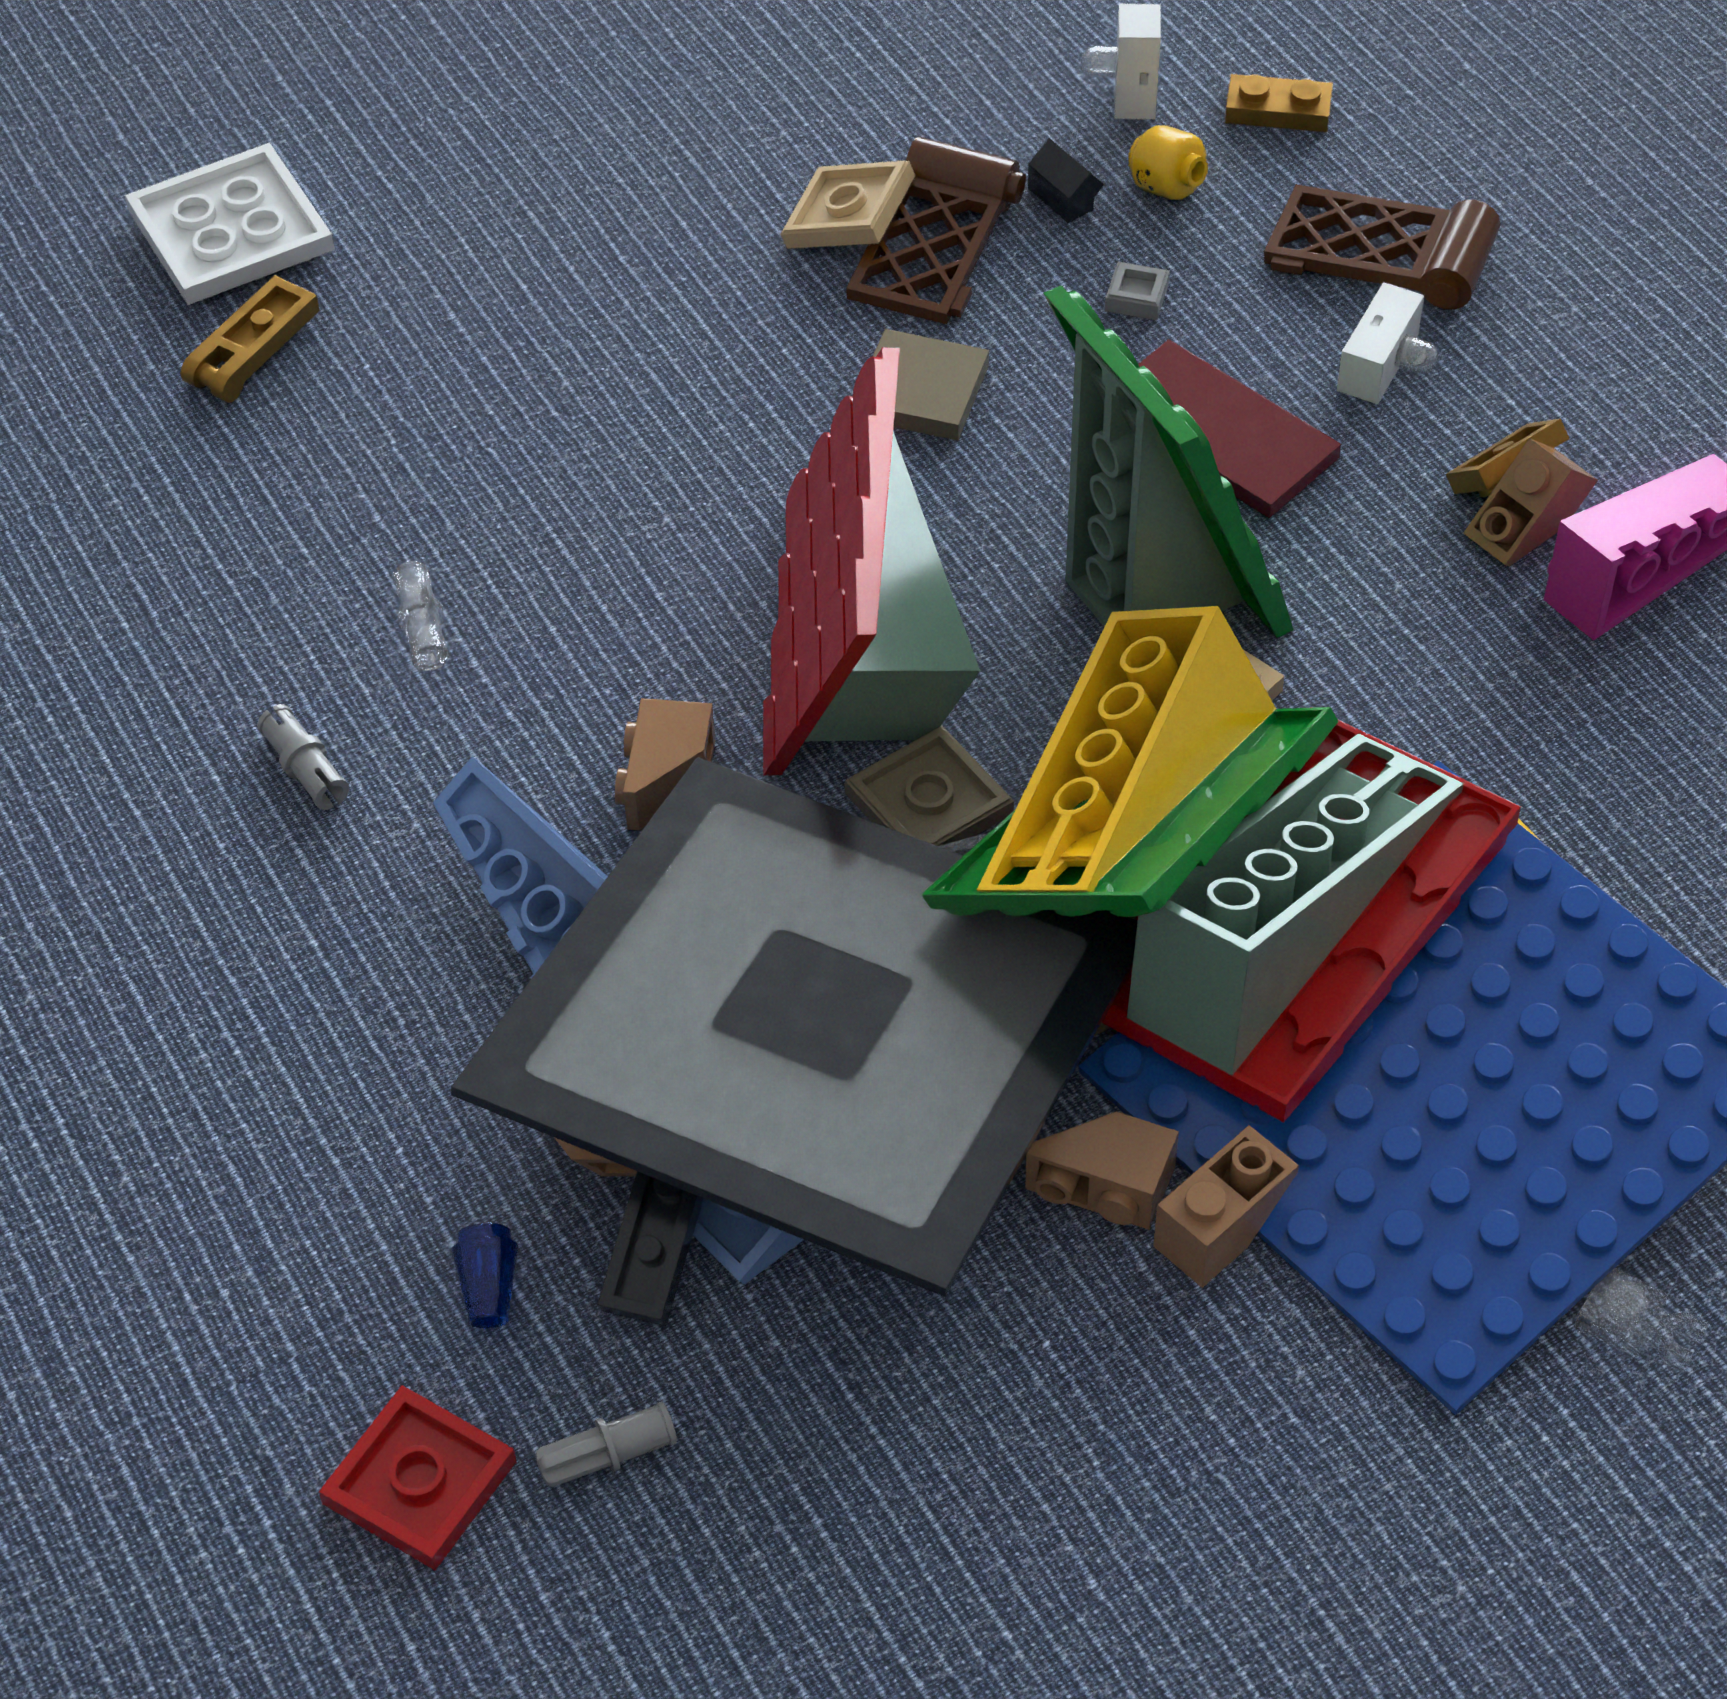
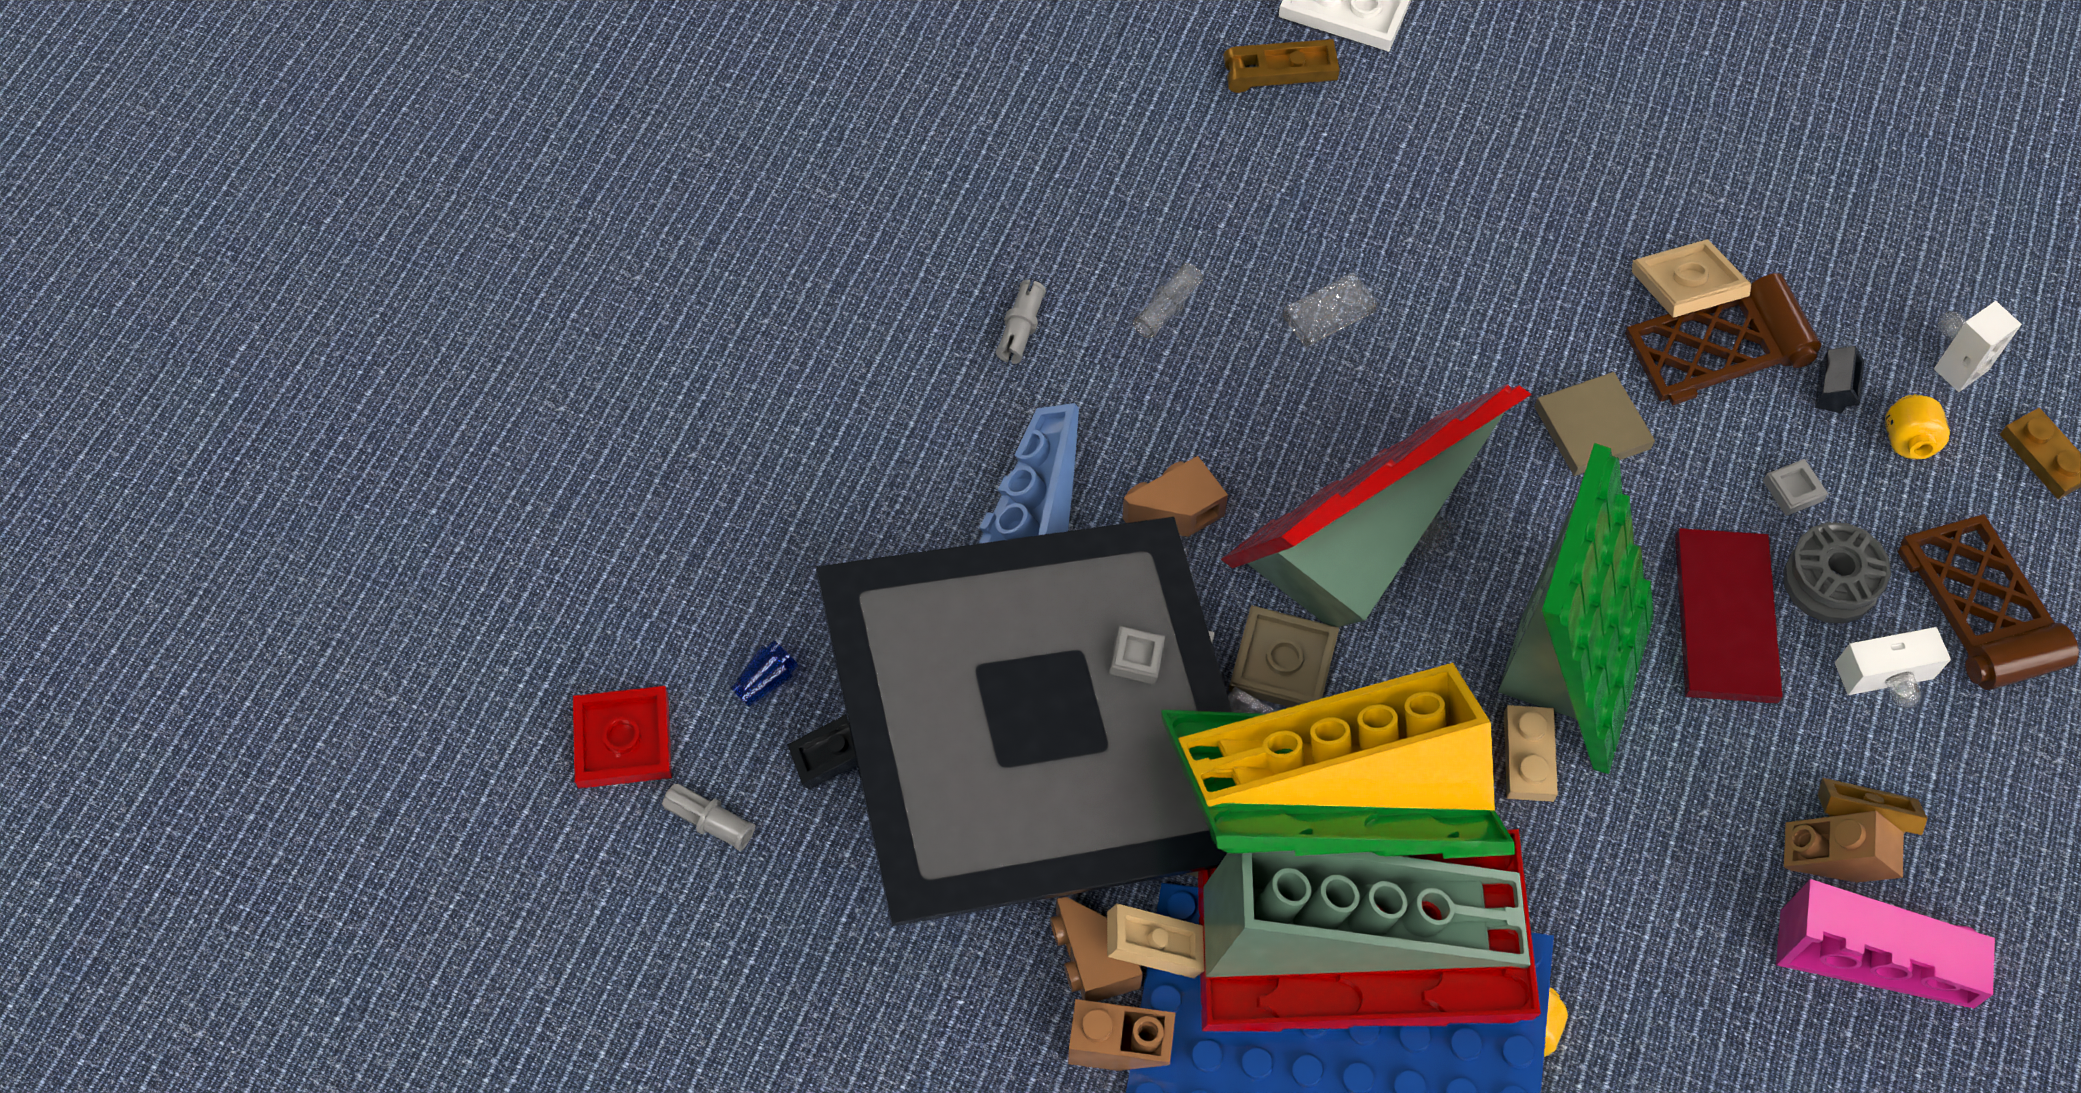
camera: 50 degrees right, 10 degrees up
(576, 495) = (1329, 309): none -> clear plate
(831, 884) = (1137, 655): none -> light grey tile
(1155, 1091) = (1155, 941): none -> tan plate
(1256, 318) = (1851, 553): none -> dark grey wheel

